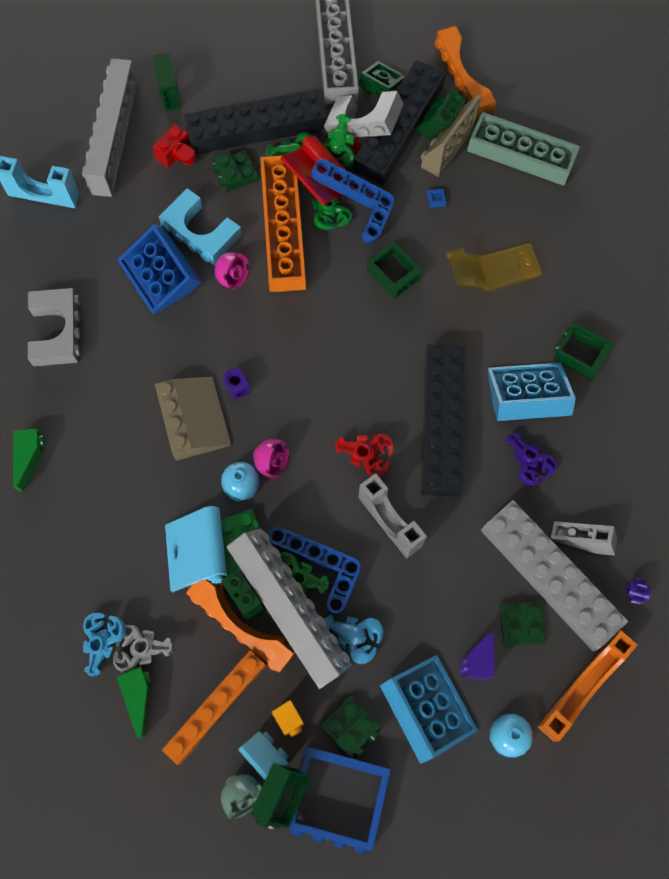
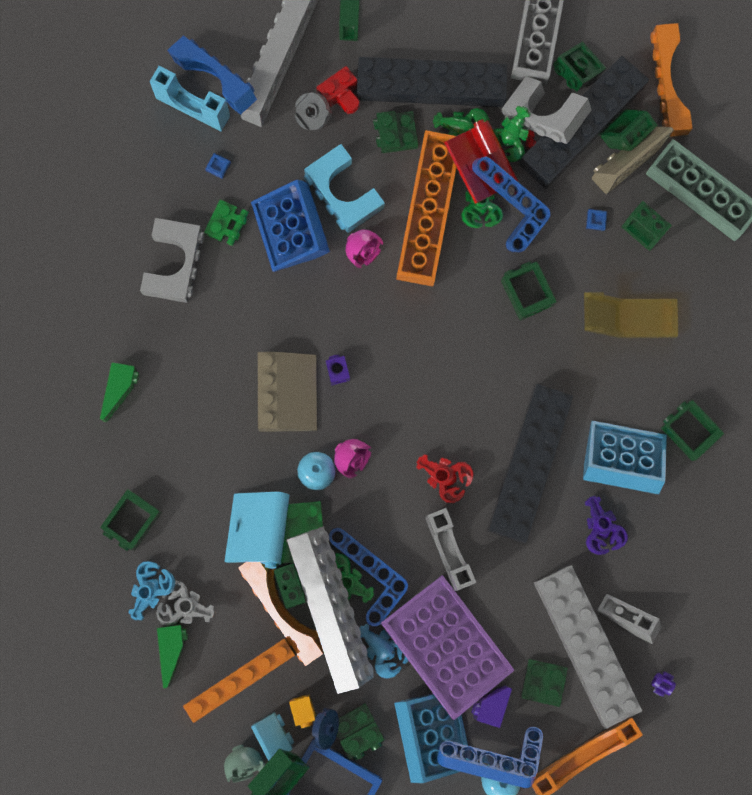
camera: 10 degrees right, 10 degrees up
(32, 150) = (191, 57): none -> blue arch
(79, 237) = (218, 165): none -> blue tile
(82, 583) = (125, 544): none -> dark green window
(93, 280) = (221, 220): none -> green plate
(163, 171) = (303, 110): none -> dark grey plate
(316, 730) = (325, 728): none -> dark blue plate
(417, 614) = (447, 647): none -> medium lavender plate
(478, 196) = (644, 227): none -> dark green window
(499, 718) = (496, 761): none -> blue beam

